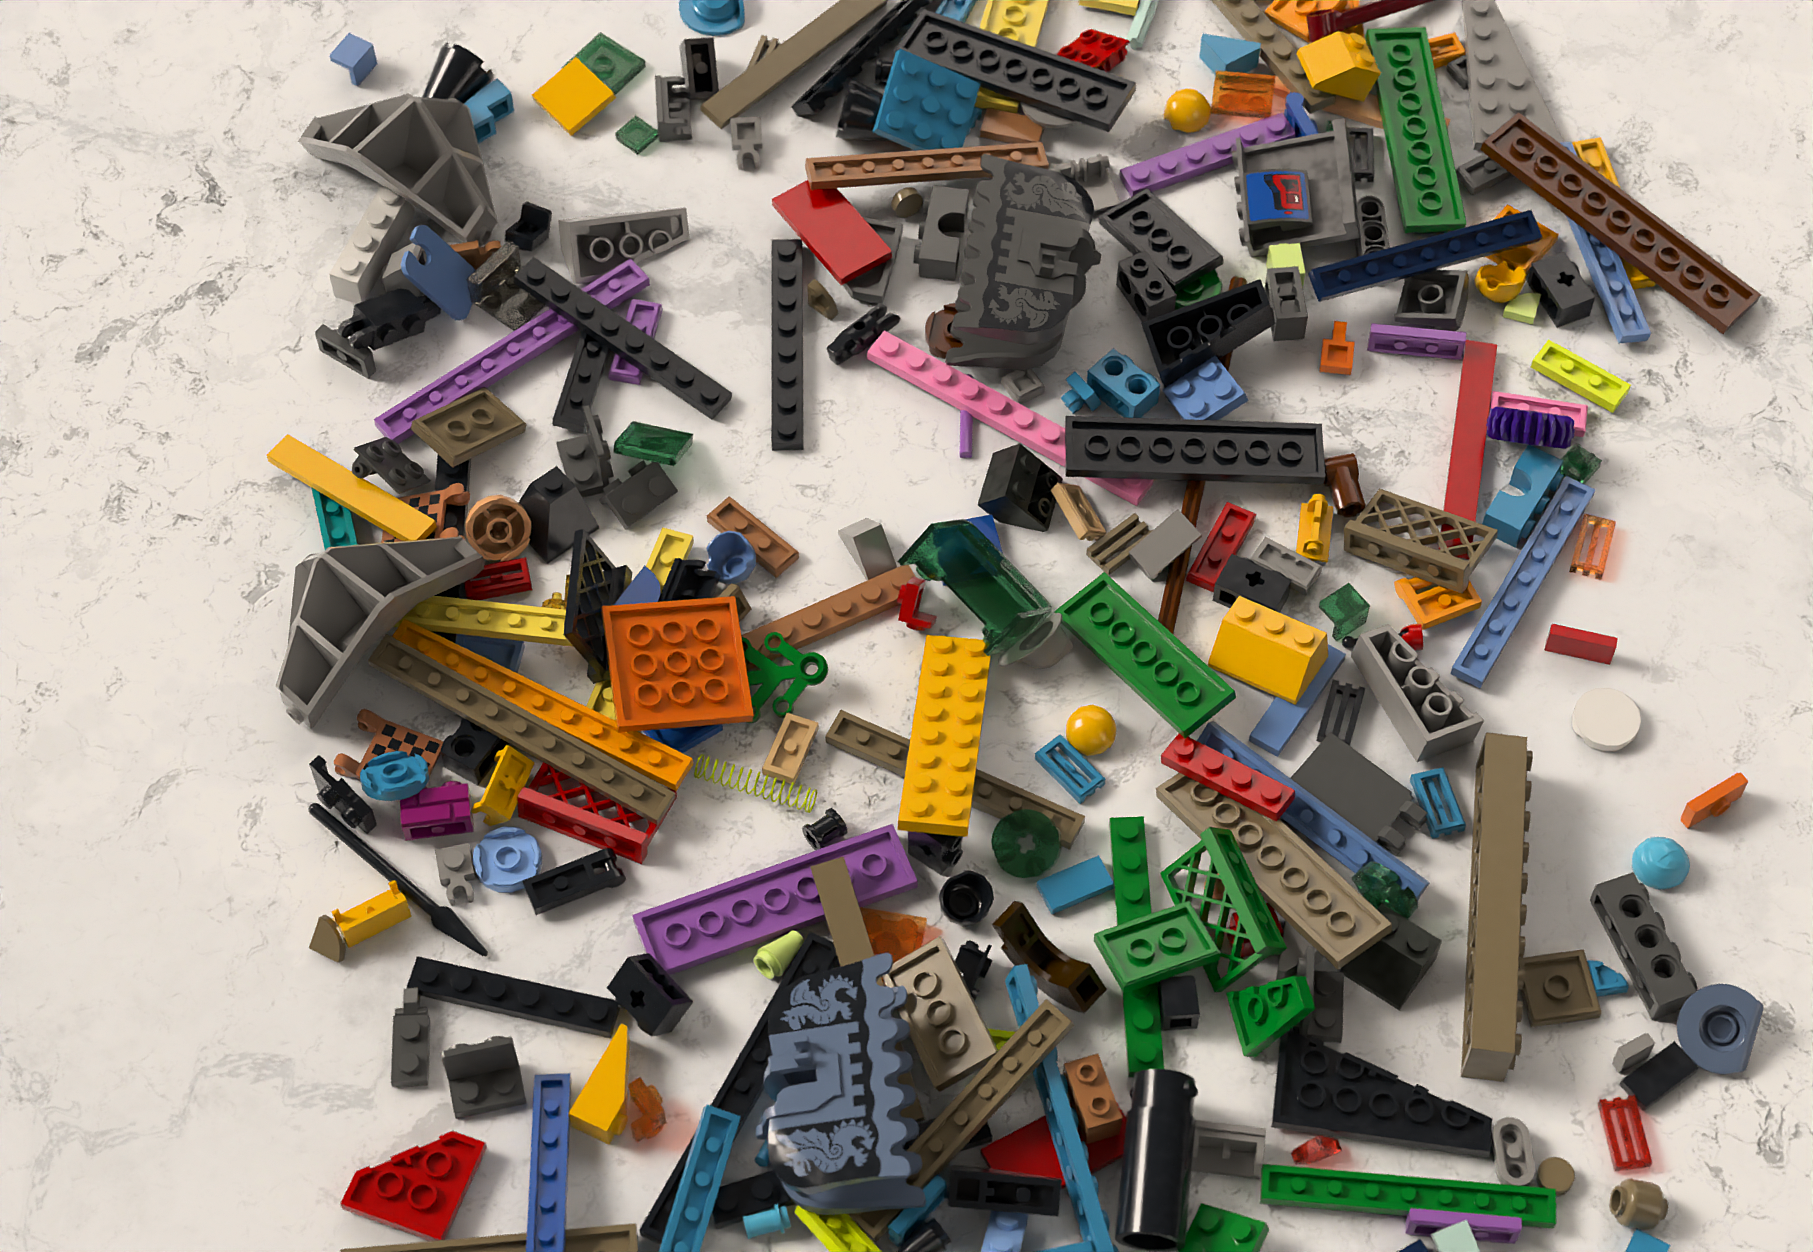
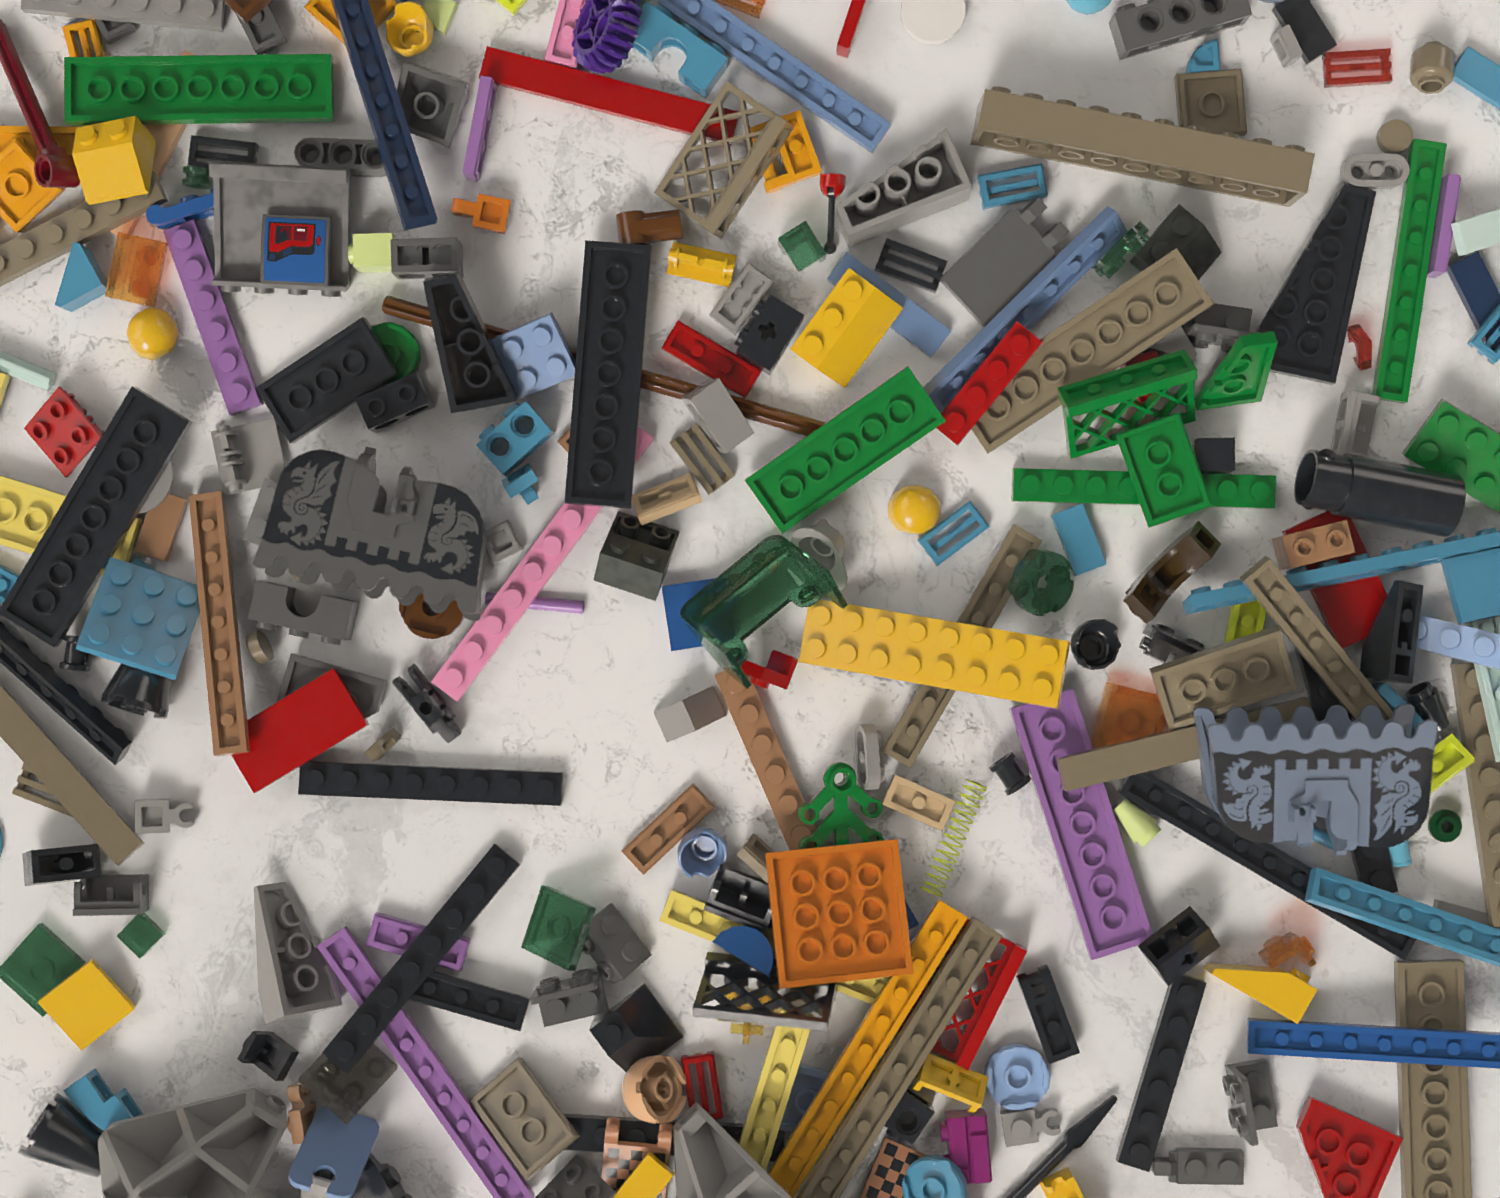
camera: 85 degrees left, 30 degrees up
(820, 701) = (867, 746): none -> light grey plate

